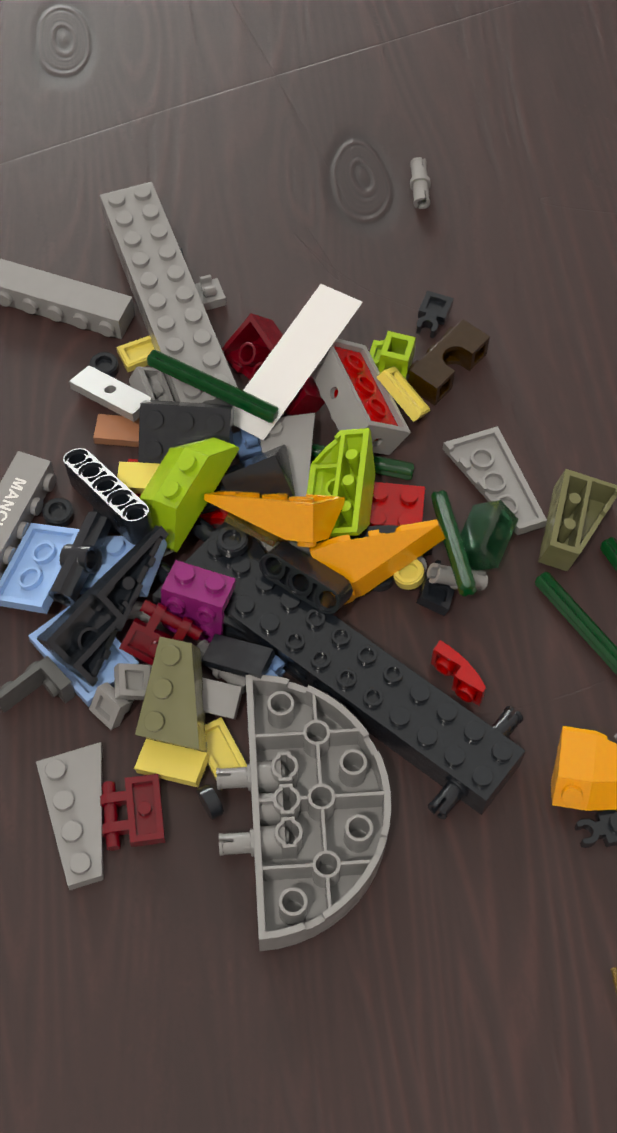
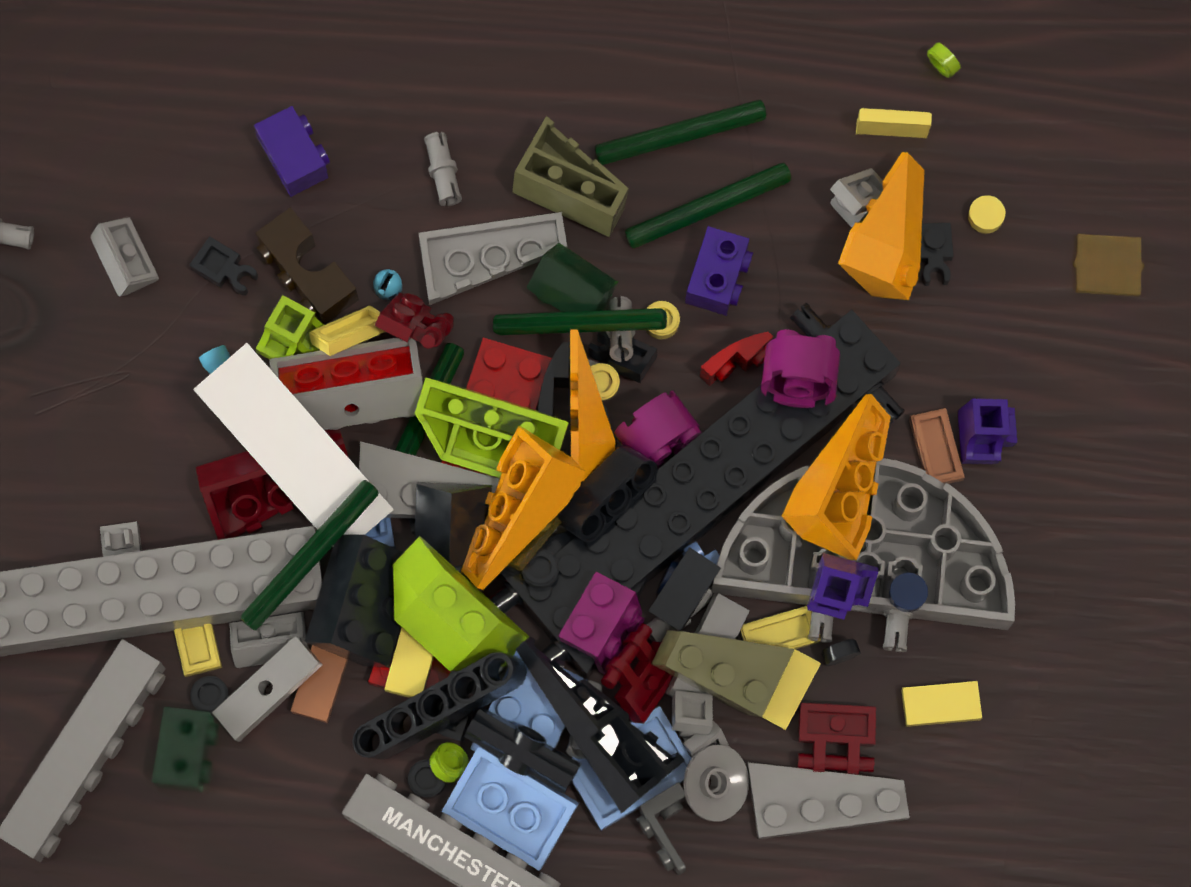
camera: 80 degrees left, 15 degrees up
(57, 353) = (184, 750): none -> clear green brick
(64, 725) = (727, 787): none -> light grey dish
(70, 517) = (448, 762): none -> lime tile
(179, 901) = (941, 703): none -> light yellow tile
(259, 769) = (841, 585): none -> dark purple brick
(266, 834) = (908, 592): none -> dark blue tile
(351, 757) = (835, 491): none -> light orange wedge
(360, 322) = (214, 358): none -> medium azure hinge
(375, 614) = (659, 428): none -> magenta brick
(420, 859) = (937, 446): none -> nougat tile
(422, 430) = (410, 318): none -> dark red plate
(426, 258) = (123, 256): none -> light grey slope
(448, 896) = (985, 429): none -> dark purple brick
(450, 700) = (801, 369): none -> magenta brick
(451, 419) = (393, 287): none -> medium azure hinge
(478, 614) = (673, 320): none -> light yellow tile
(532, 646) = (718, 270): none -> dark purple brick
(536, 333) = (291, 150): none -> dark purple brick
(557, 436) = (442, 169): none -> light grey pin

